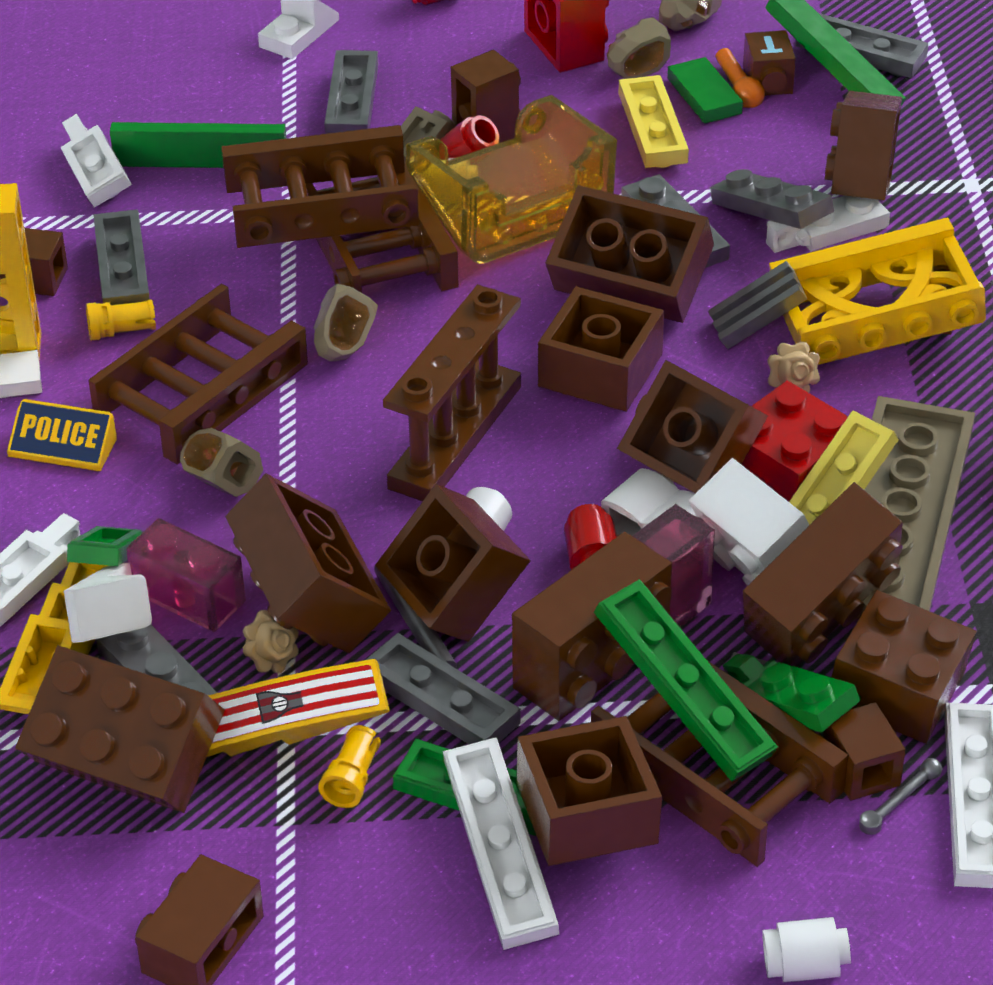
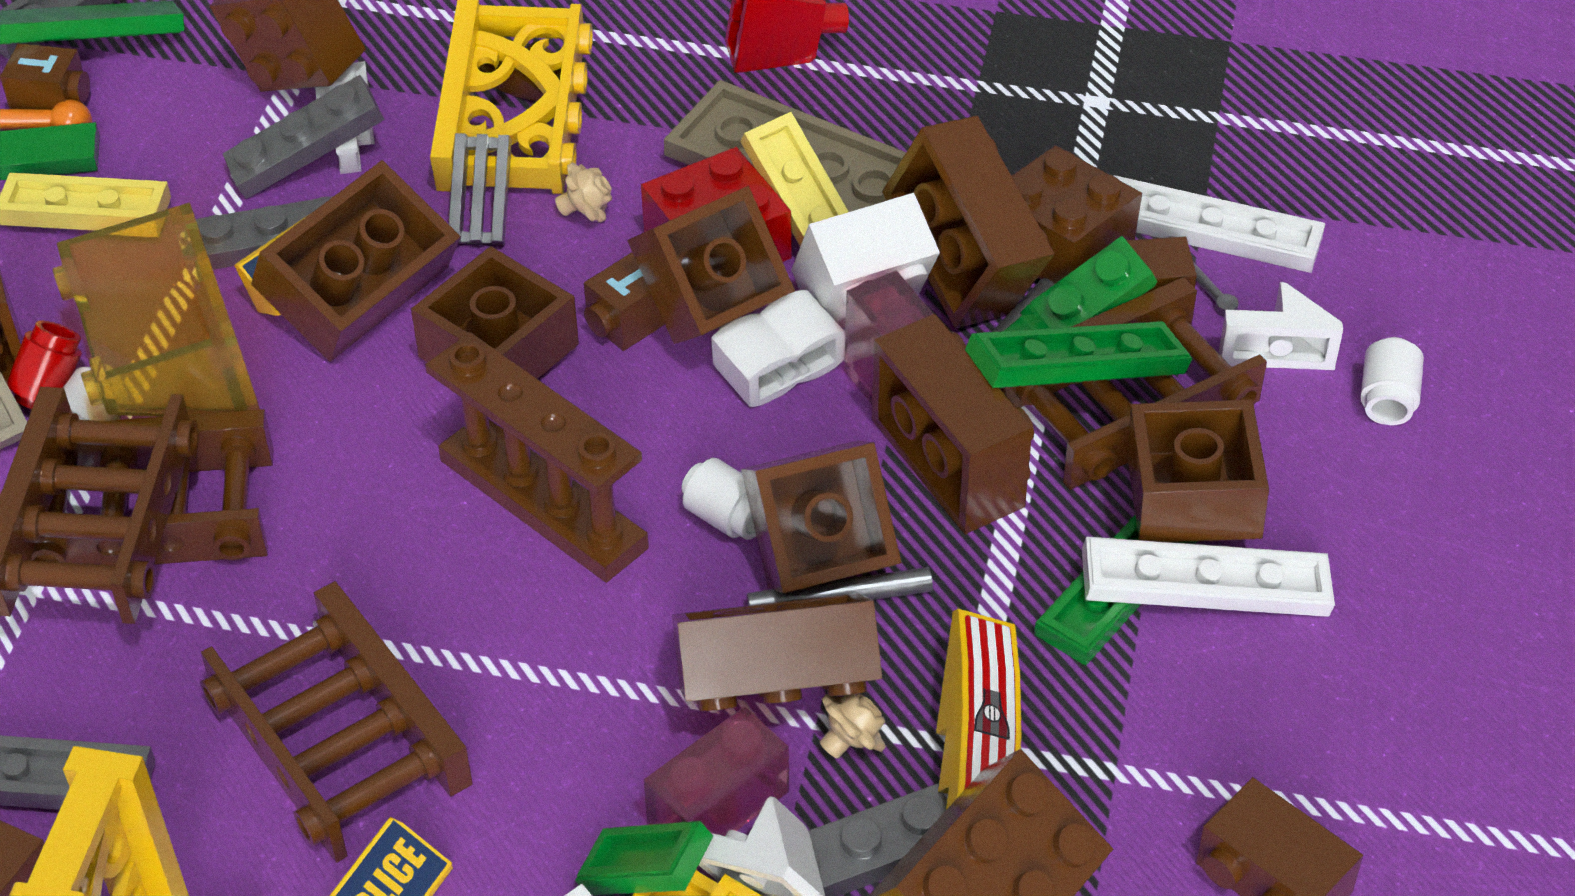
camera: 75 degrees left, 5 degrees up
(107, 319) = (174, 788): yellow pin -> none
(221, 461) = (517, 723): dark tan rock -> none
(343, 322) = (315, 552): rock -> none
(347, 774) = (1078, 692): yellow pin -> none
(444, 692) = (976, 582): flat silver plate -> none
(587, 531) = (793, 410): red brick -> none
(831, 859) = (1290, 337): none -> white slope

